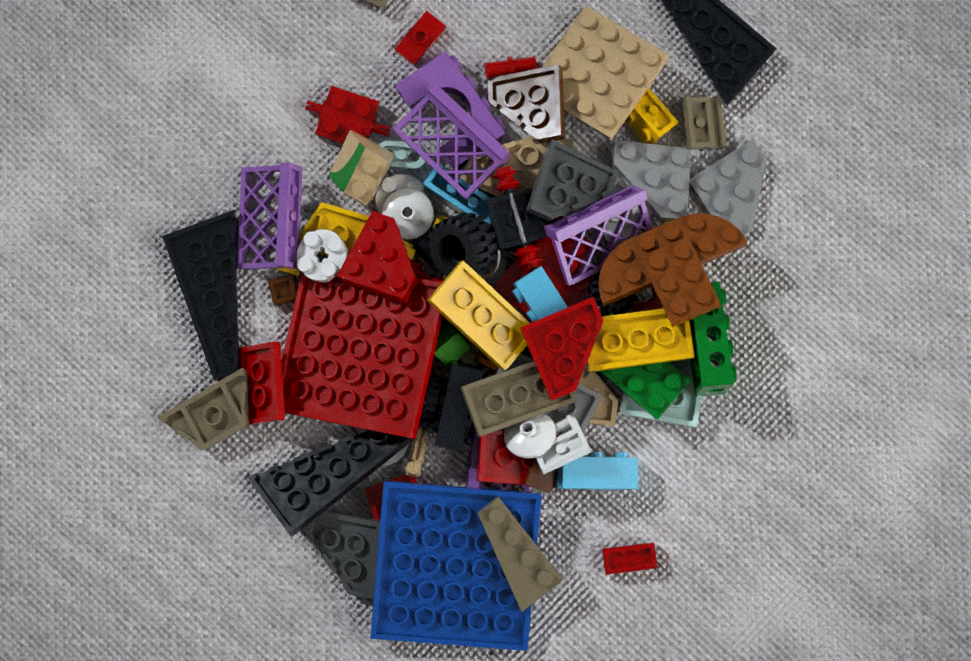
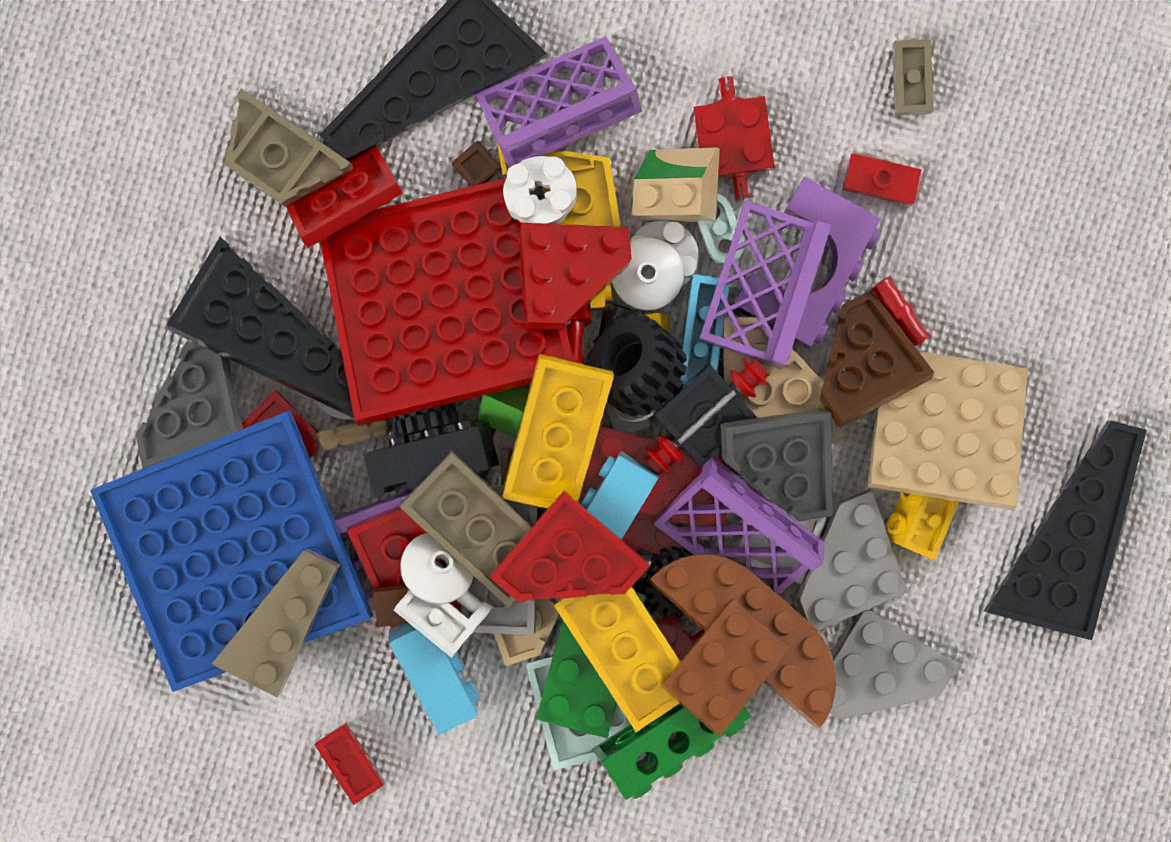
camera: 60 degrees right, 5 degrees up
(704, 123) = (949, 592): dark tan plate -> none

